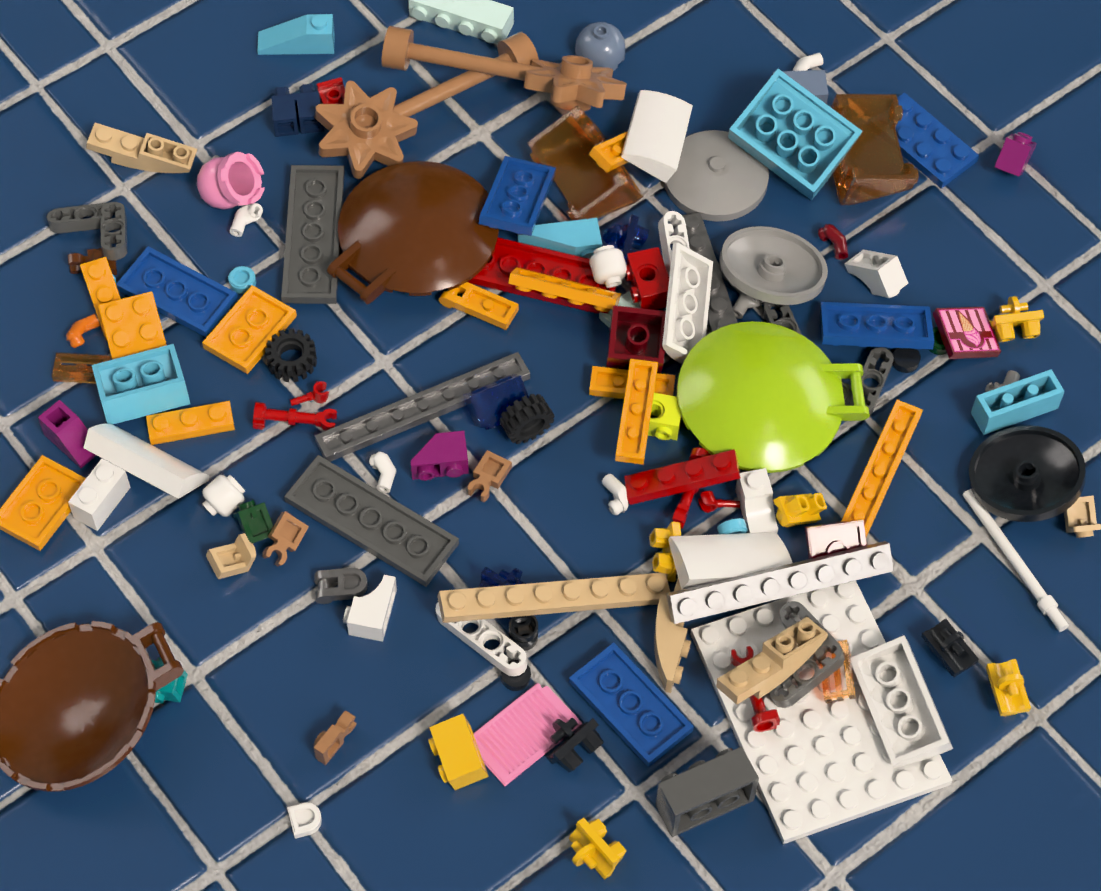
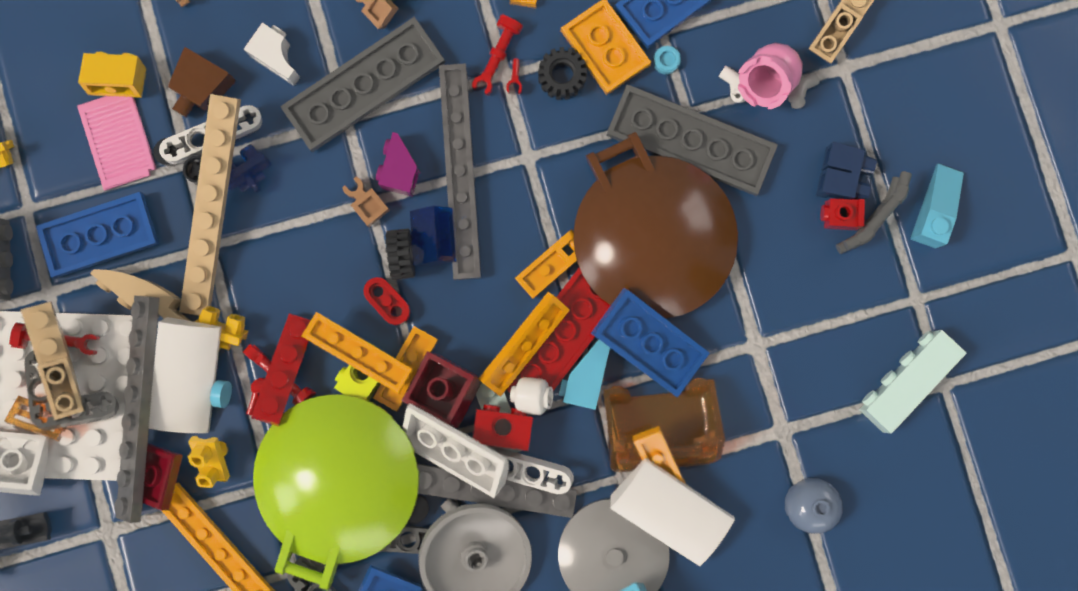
camera: 115 degrees right, 25 degrees up
(314, 74) = (895, 195): none -> dark grey piece
(350, 583) = (310, 45): flat silver plate -> none
(373, 126) = (791, 232): medium nougat piece -> none
(387, 471) = (410, 116): white arm -> none
(432, 669) = (195, 81): none -> reddish brown torso
(570, 82) = (769, 448): medium nougat piece -> none
(575, 425) = (387, 302): none -> red plate
(585, 735) = (83, 171): black hips -> none
(619, 493) = (302, 309): white arm -> none
(626, 236) = (566, 427): clear blue hips -> none
(756, 501) = (235, 427): white arch -> none

